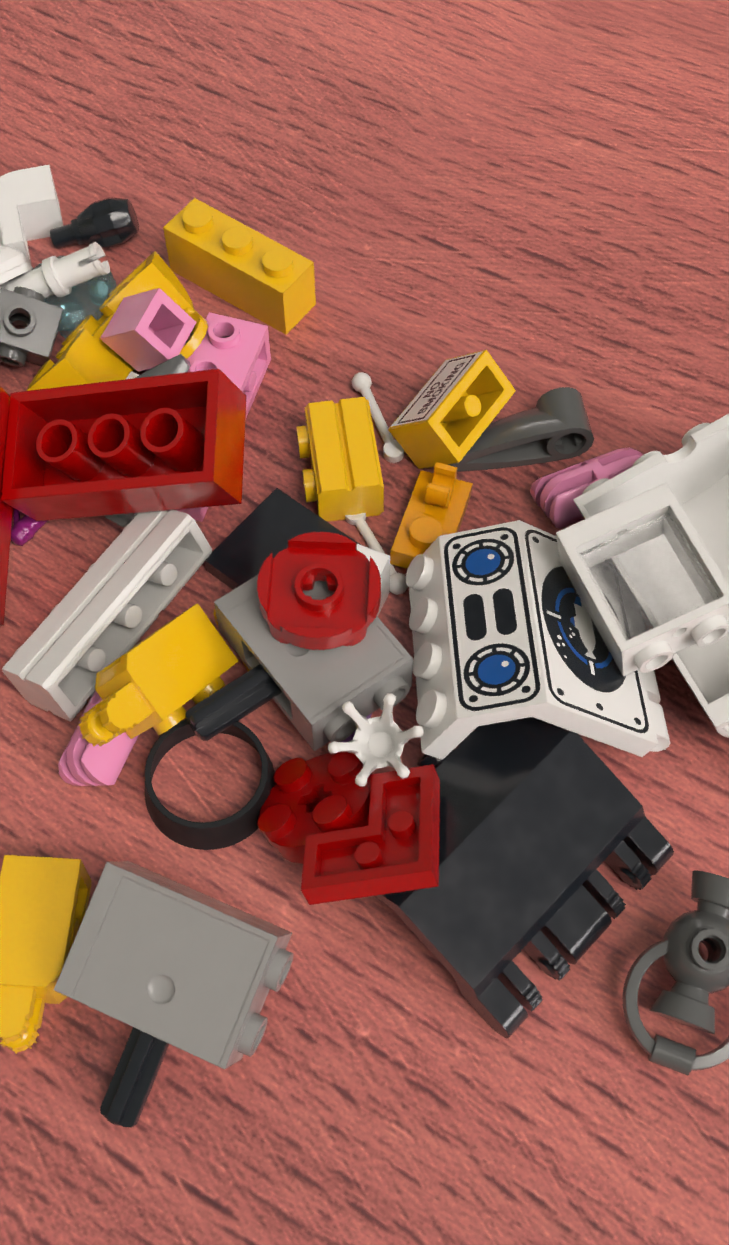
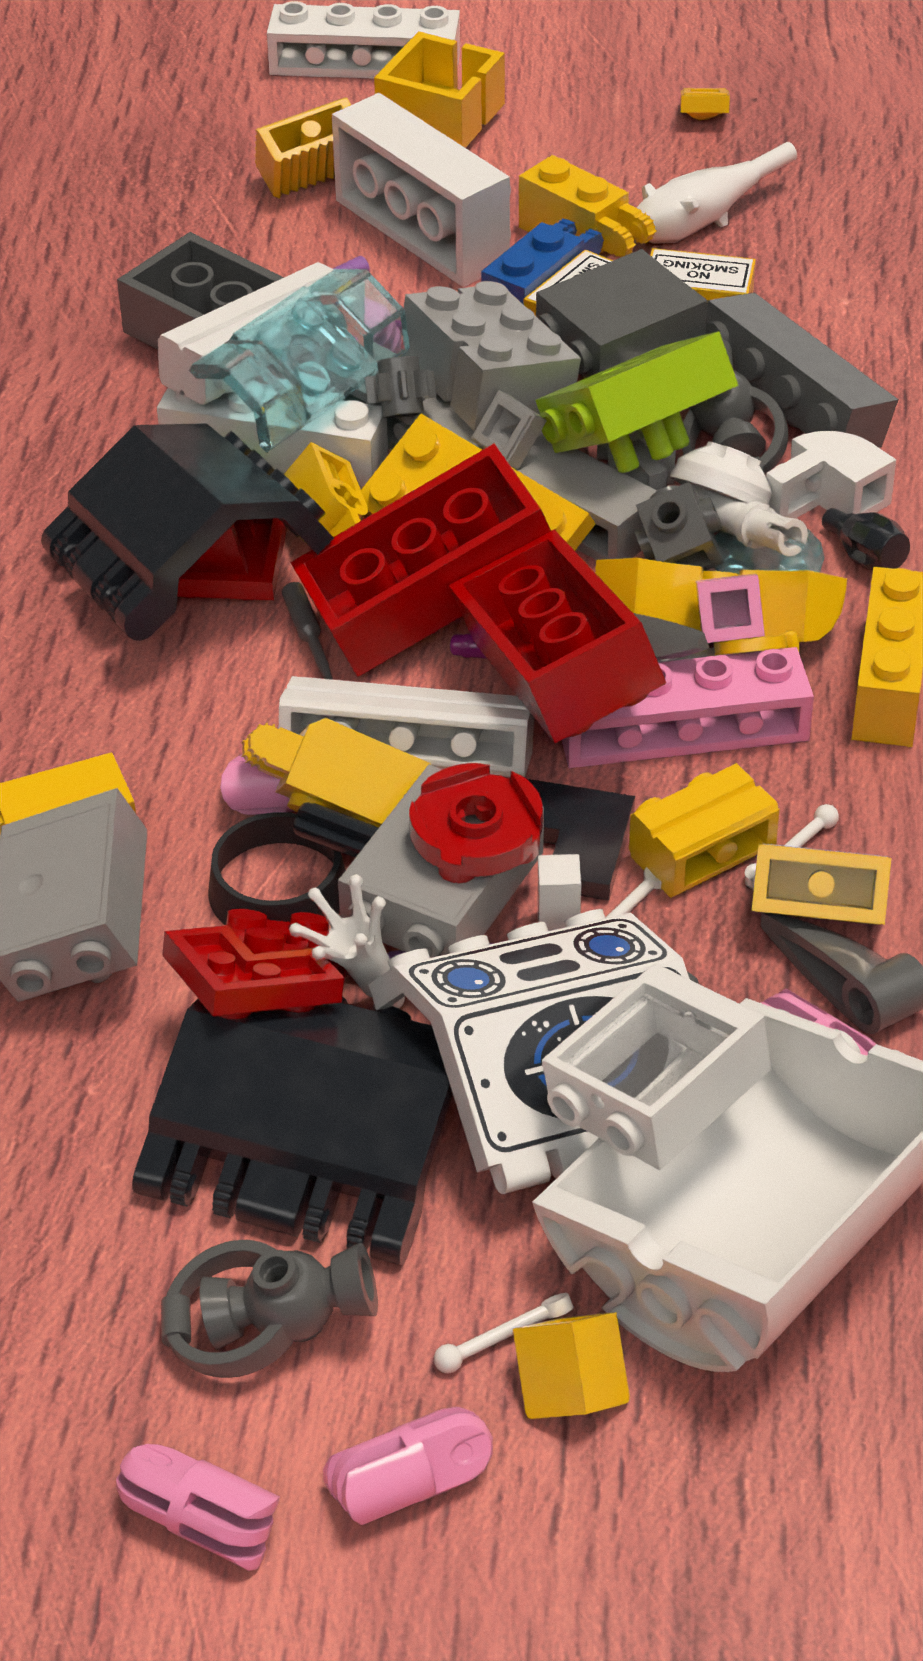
camera: 65 degrees right, 15 degrees down
(433, 511) = (697, 929): light orange plate -> none

